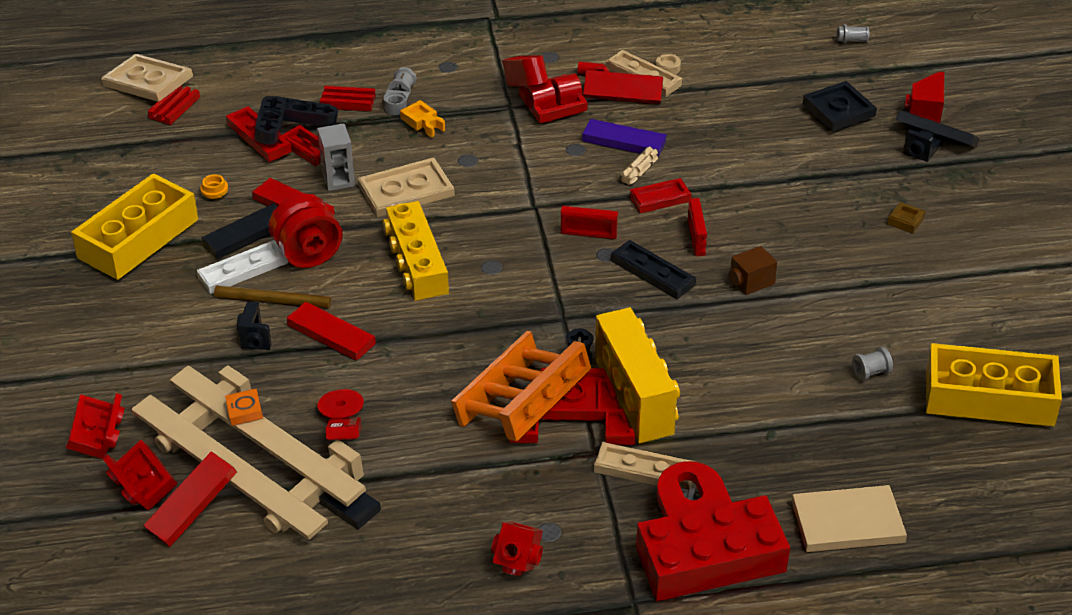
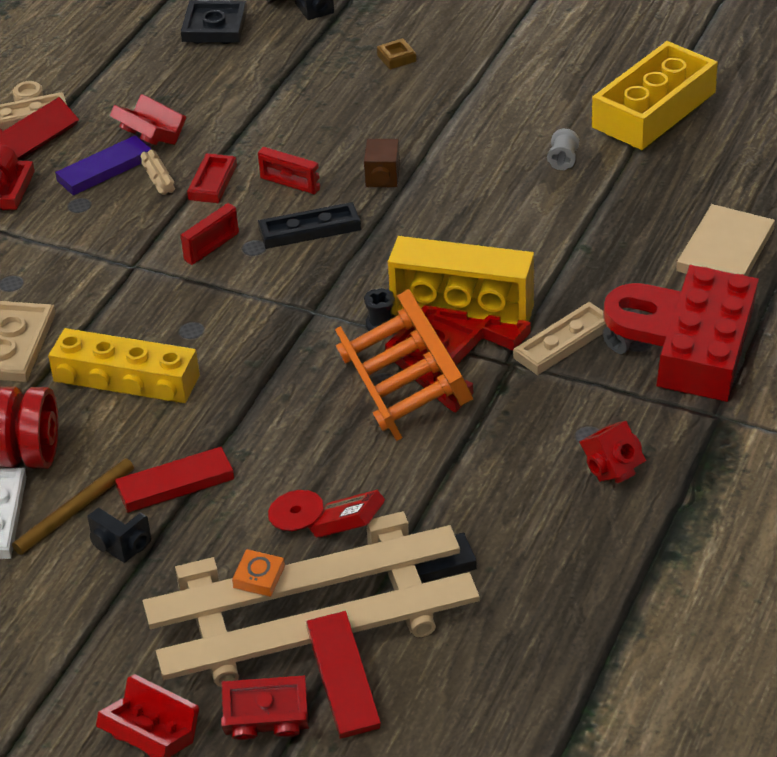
camera: 55 degrees left, 0 degrees up
(683, 133) = (151, 119): none -> bracket

